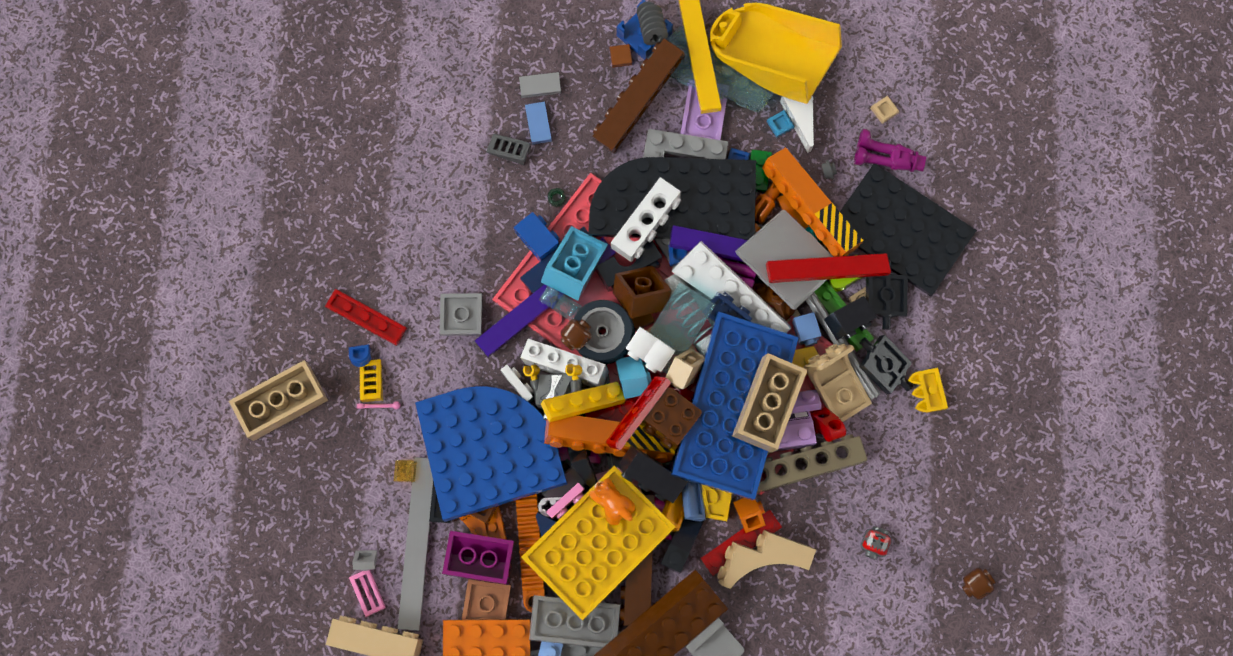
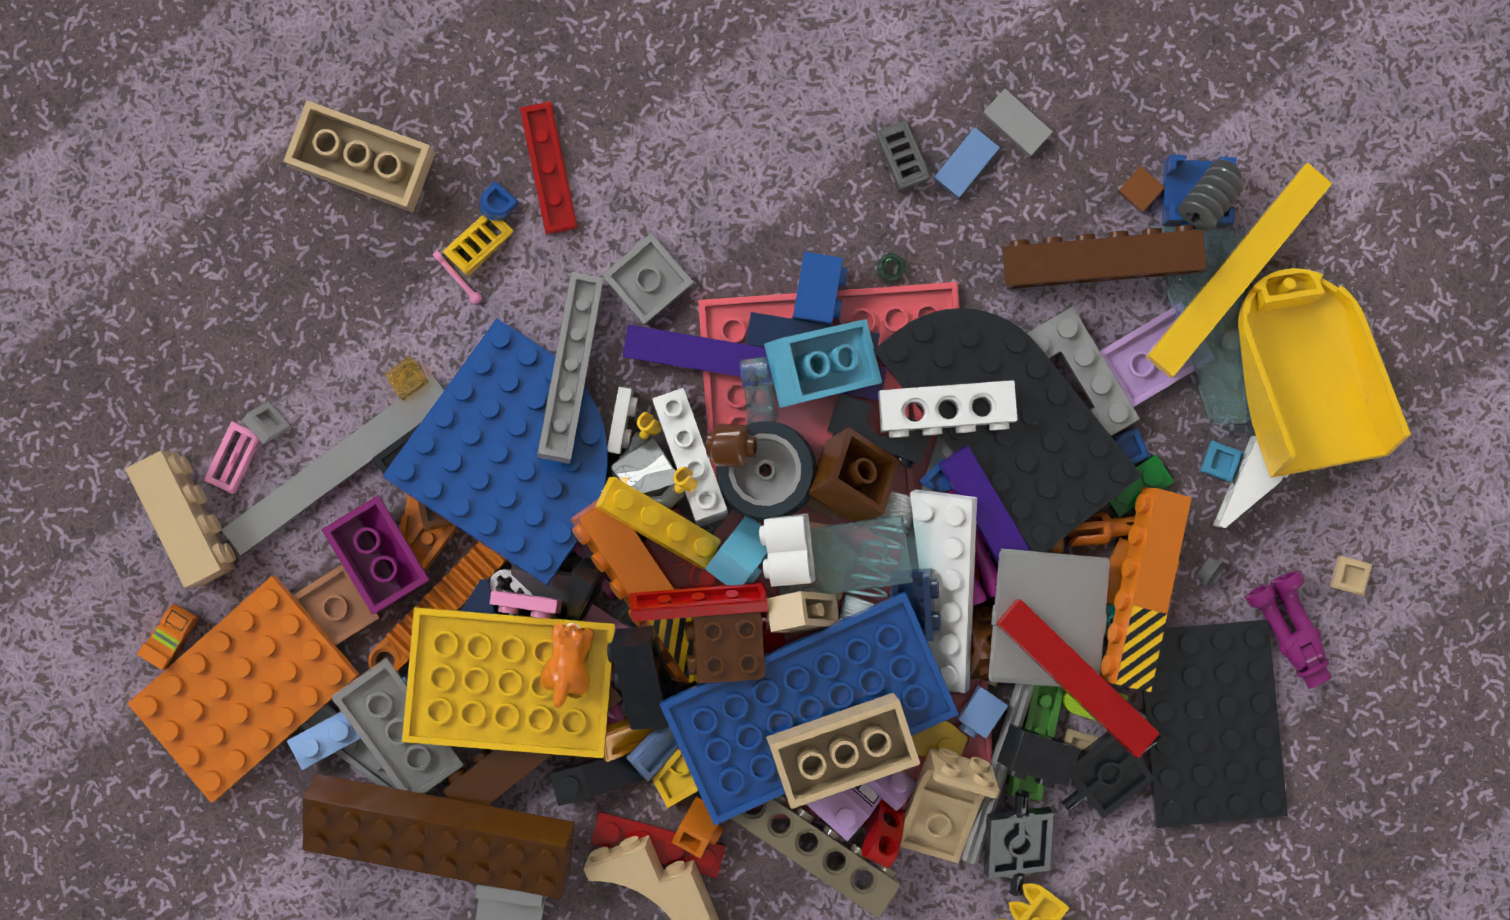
camera: 50 degrees right, 10 degrees up
(471, 384) = (570, 368): none -> light grey plate

